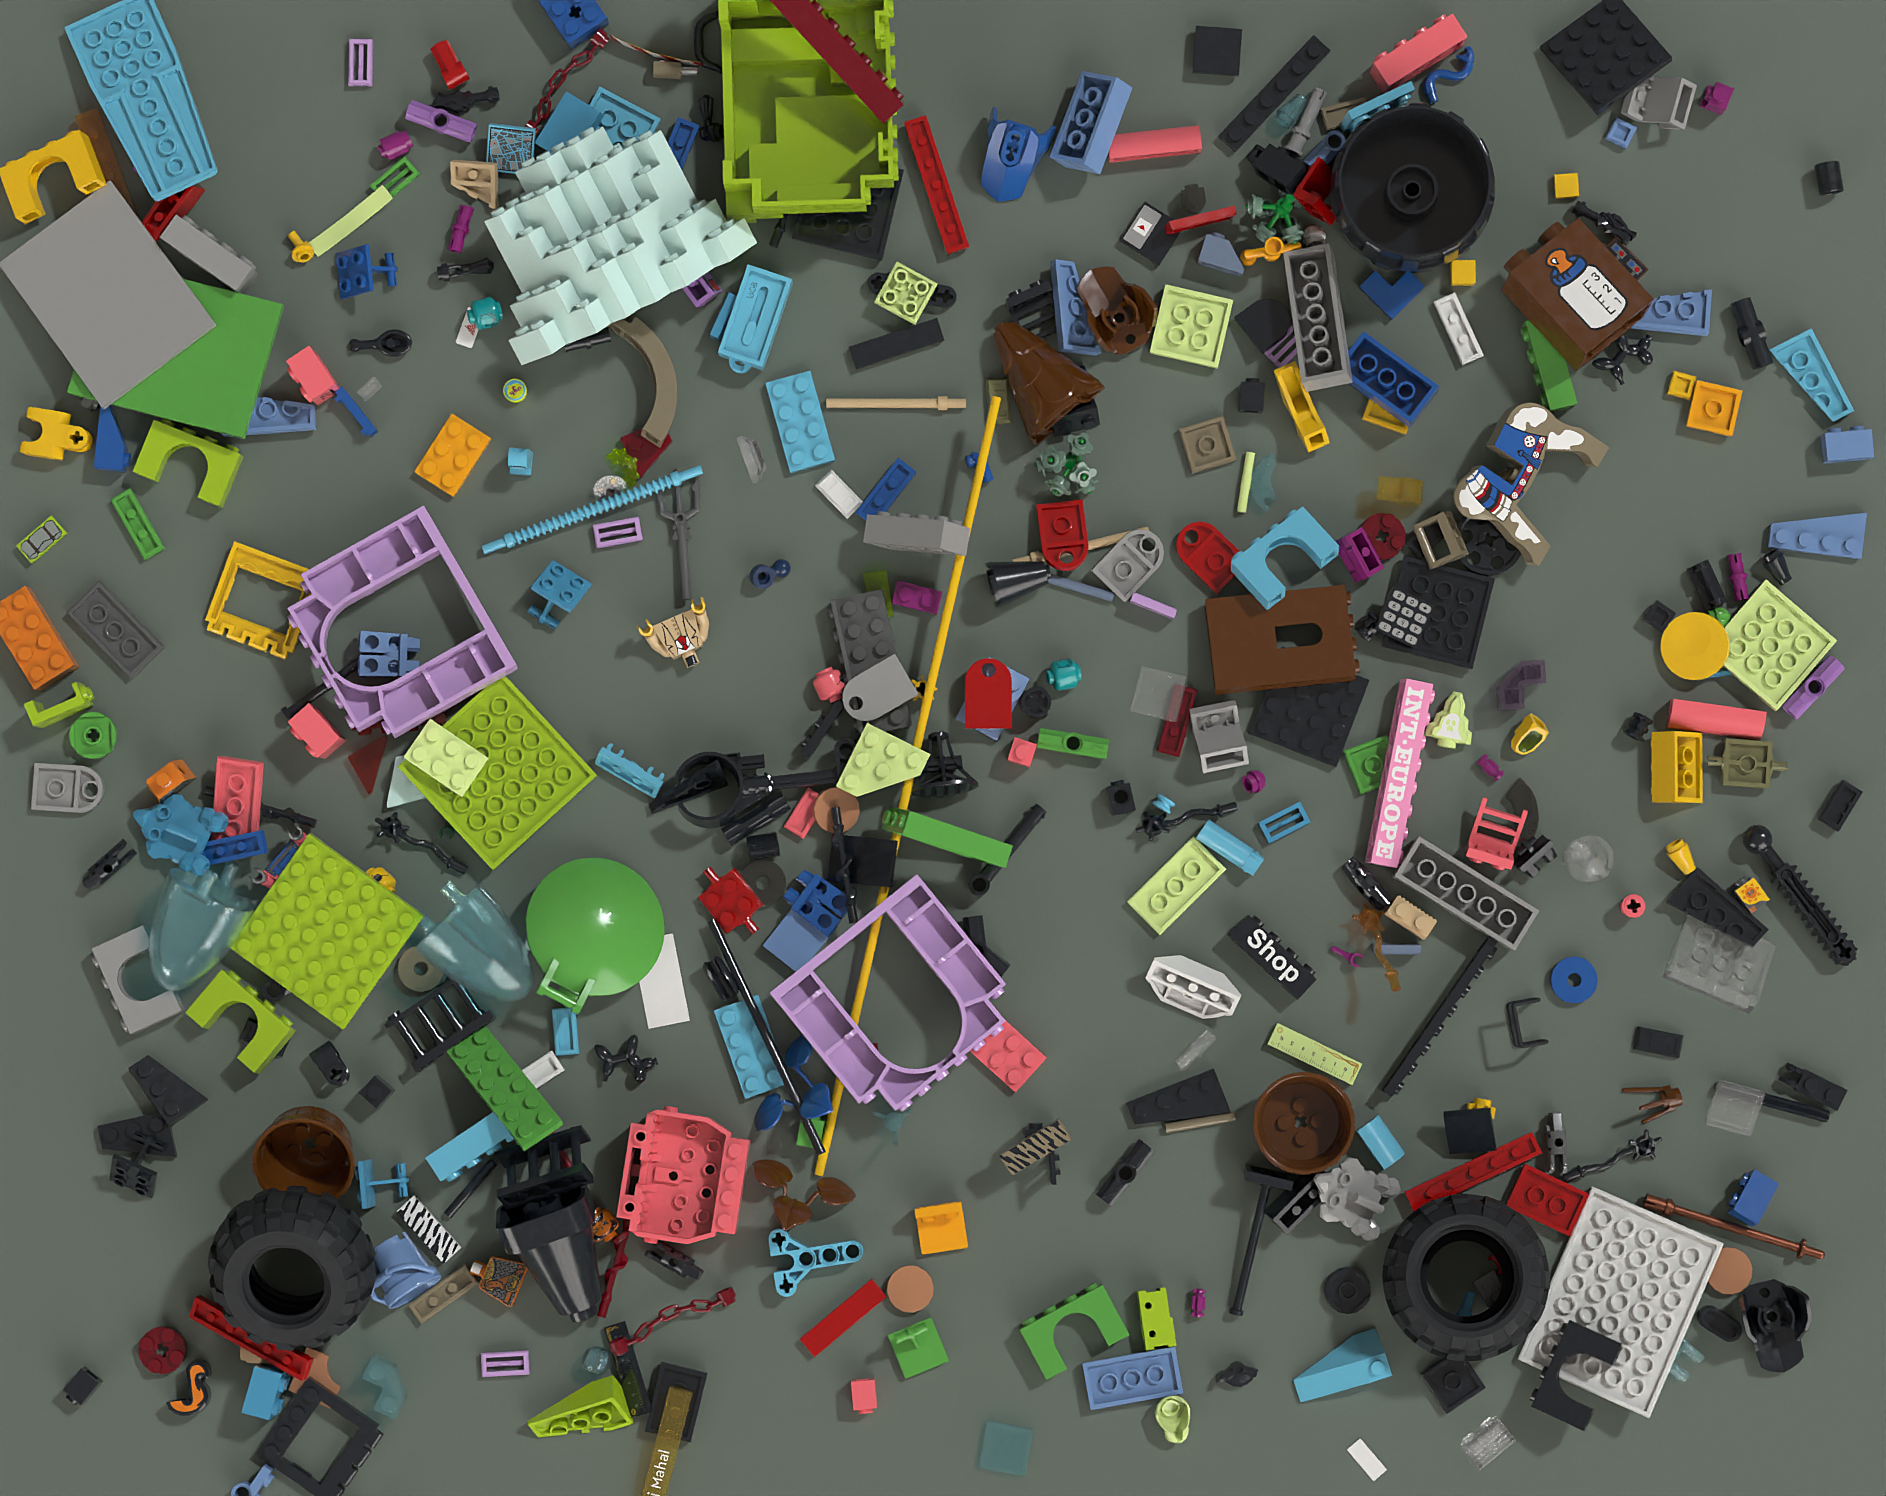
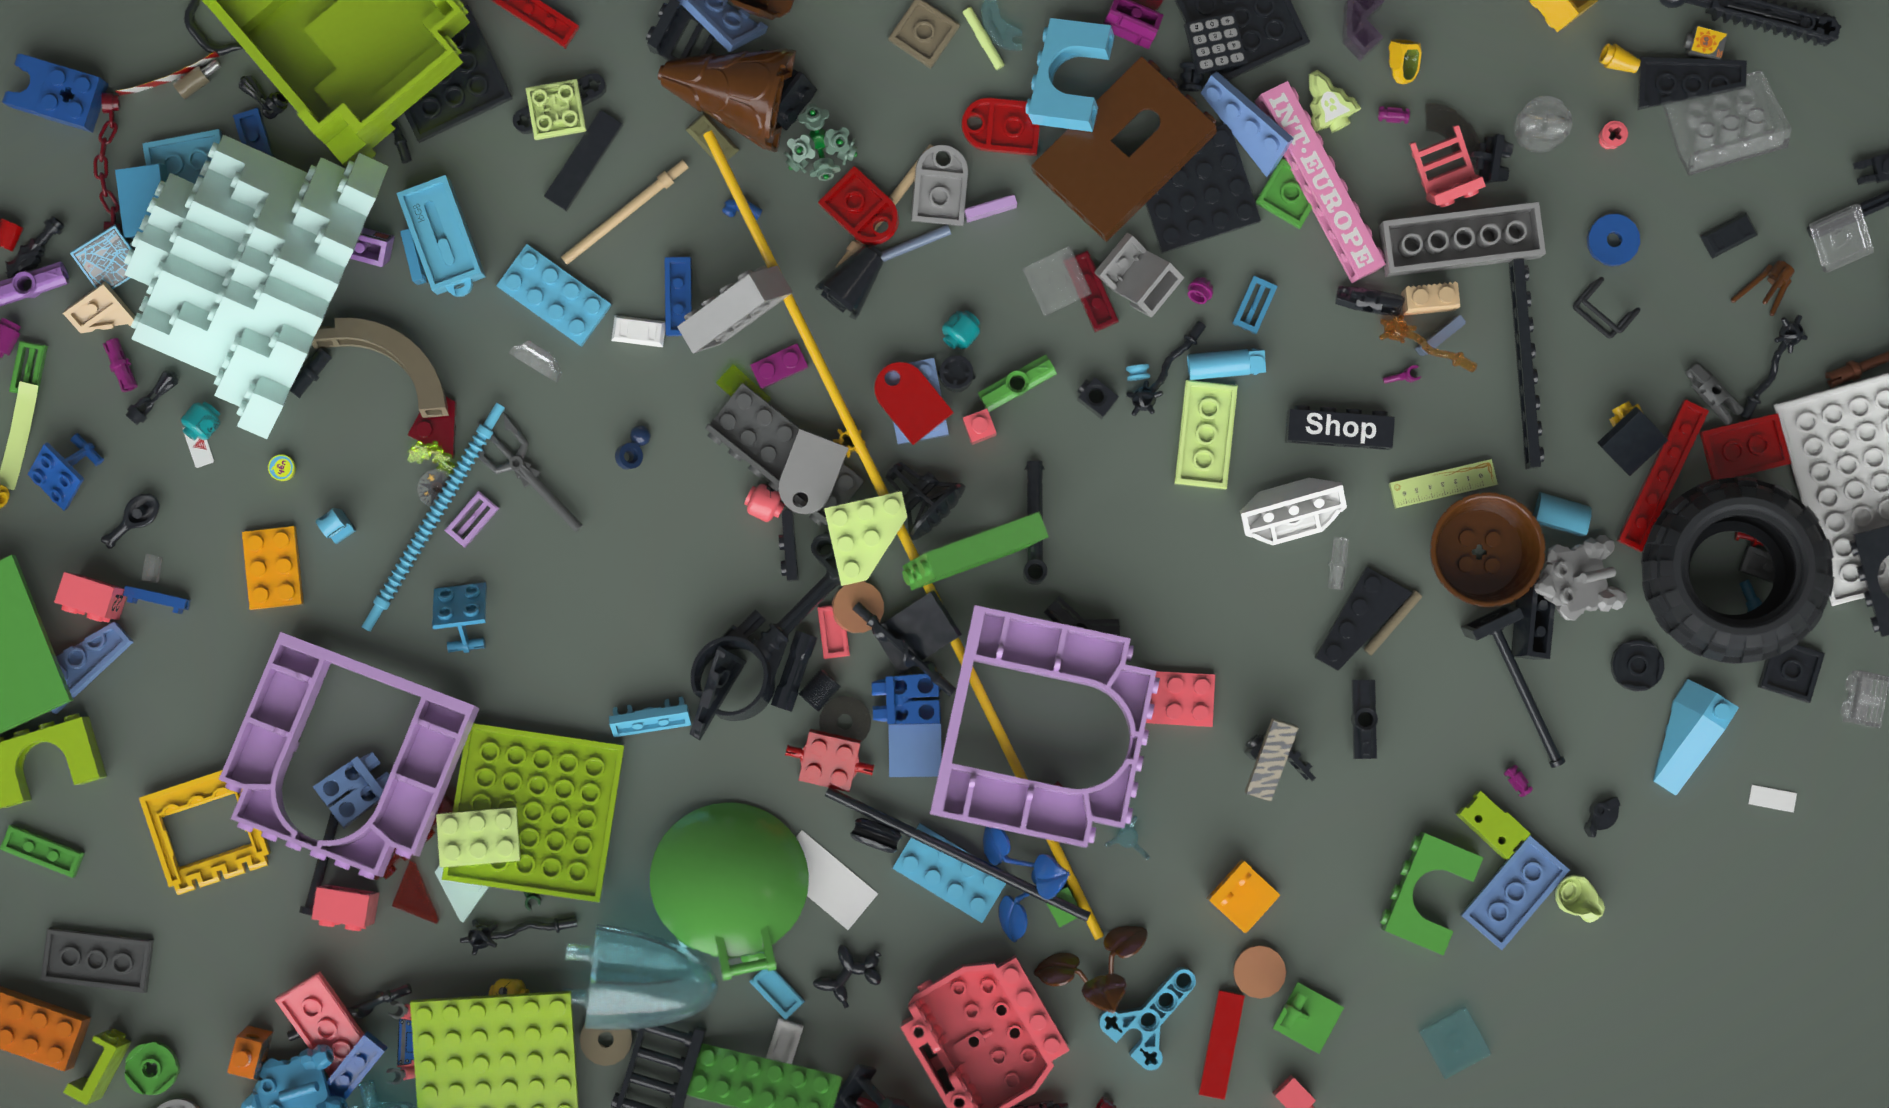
camera: 40 degrees left, 0 degrees up
(679, 634) = (597, 564): tan torso -> none
(1382, 698) = (1249, 124): none -> medium blue wing

